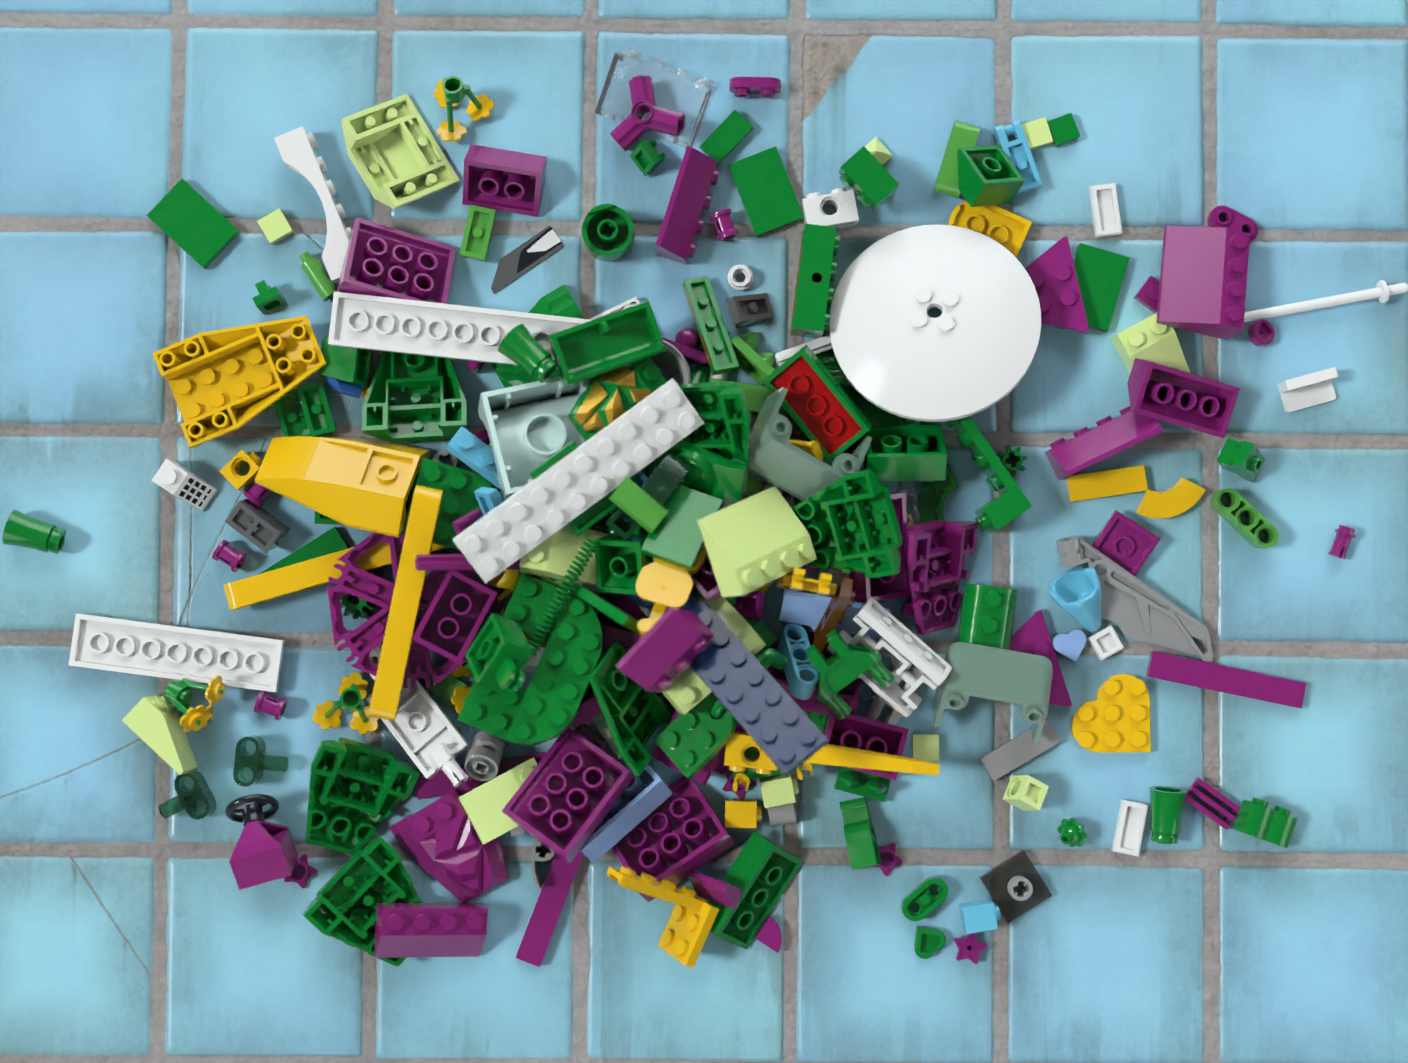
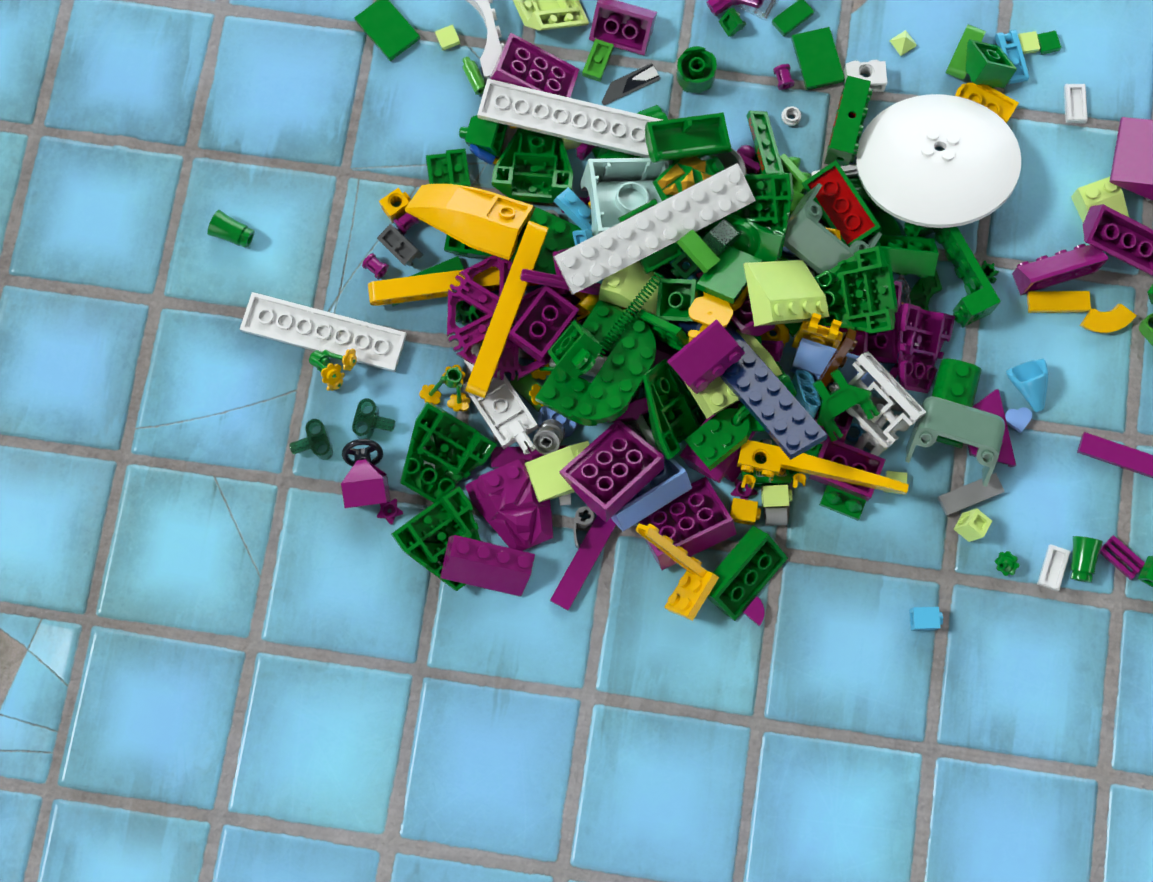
camera: 15 degrees right, 10 degrees down
(161, 730) = (299, 376): yellowish green slope -> none
(184, 484) = (349, 209): white slope -> none
(237, 373) = (402, 132): yellow wedge -> none
(268, 298) = (435, 85): green tile -> none
(270, 705) = (388, 380): magenta bush -> none
(528, 353) = (627, 136): green plant -> none
(686, 206) = (757, 58): magenta slope -> none
(715, 890) = (717, 563): magenta slope -> none
(749, 309) = (795, 138): dark grey slope -> none
(860, 834) = (836, 541): green piece -> none
(868, 179) = (898, 53): green slope -> none
(892, 860) = (858, 560): magenta plate -> none
(926, 901) = (882, 600): green plate -> none
(927, 941) = (881, 634): green tile -> none
(964, 953) = (909, 647): magenta plate -> none
(997, 881) = (957, 600): clear smoke tile -> none
(1013, 882) = (957, 594): light grey bush -> none
(1058, 288) = (1036, 153): magenta wing -> none
(1100, 281) = (1061, 157): green tile -> none
(1105, 642) = (1046, 421): white tile -> none
(1116, 718) = (1049, 481): yellow plate -> none
(1125, 542) = (1068, 348): magenta plate -> none
(1134, 605) = (1073, 396): light grey wing -> none
(1149, 294) = (1104, 167): magenta plate -> none

